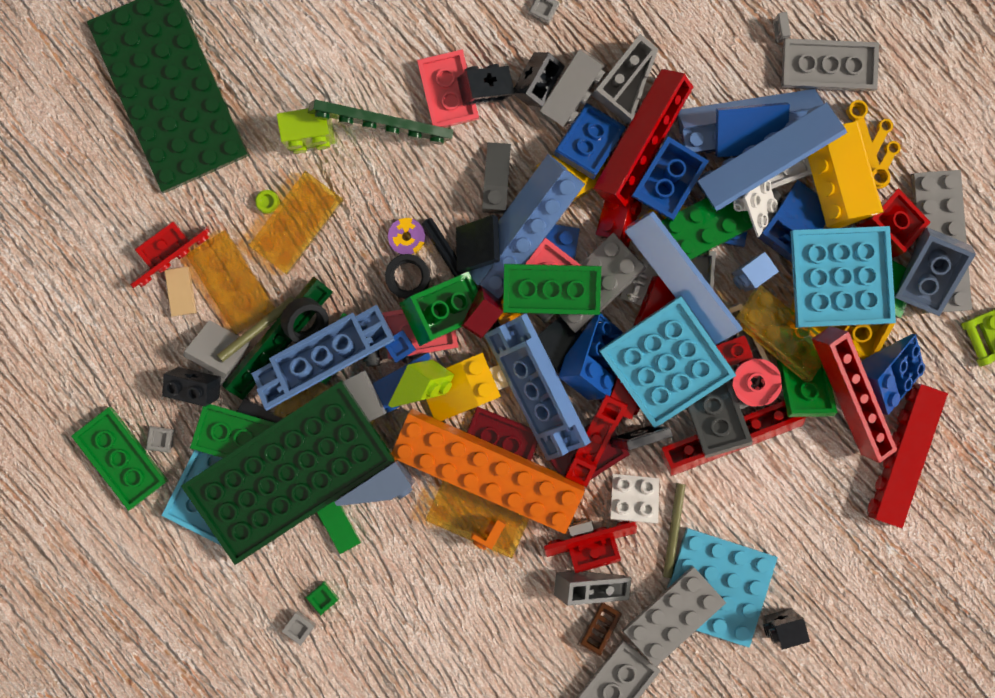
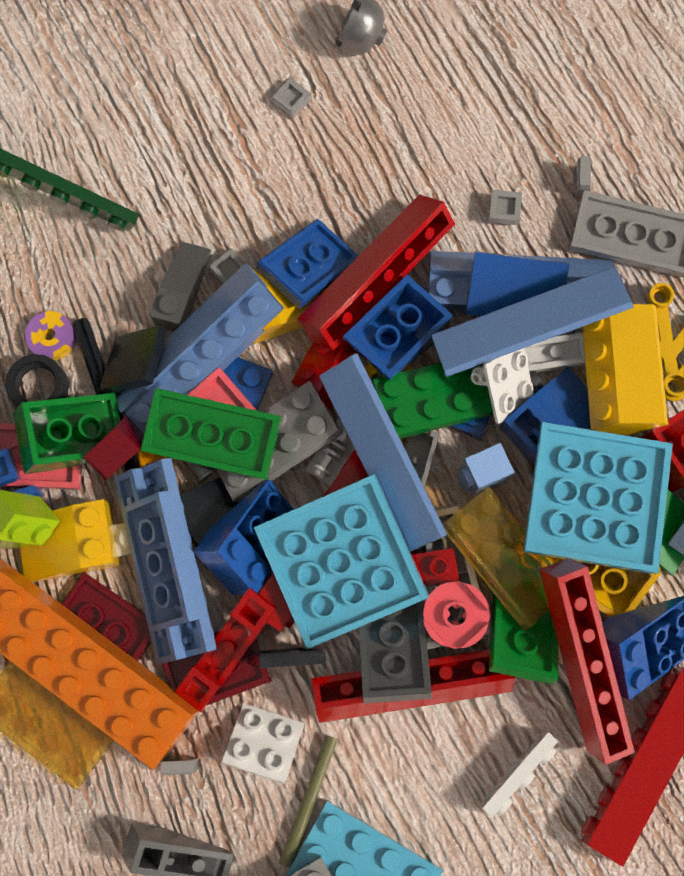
camera: 15 degrees right, 10 degrees down
(442, 89) = (148, 167): coral plate -> none
(485, 84) = (193, 169): black brick -> none
(493, 532) = (57, 746): orange bracket -> none
(528, 156) = (225, 265): none -> light grey tile
(538, 79) = (261, 175): black brick -> none
(574, 88) = (303, 194): light grey wedge -> none
(592, 549) = (190, 800): red bracket -> none
(626, 80) = (371, 197): light grey wedge -> none
(727, 64) = (505, 207): none -> light grey plate
(818, 481) = (519, 774): none -> white plate

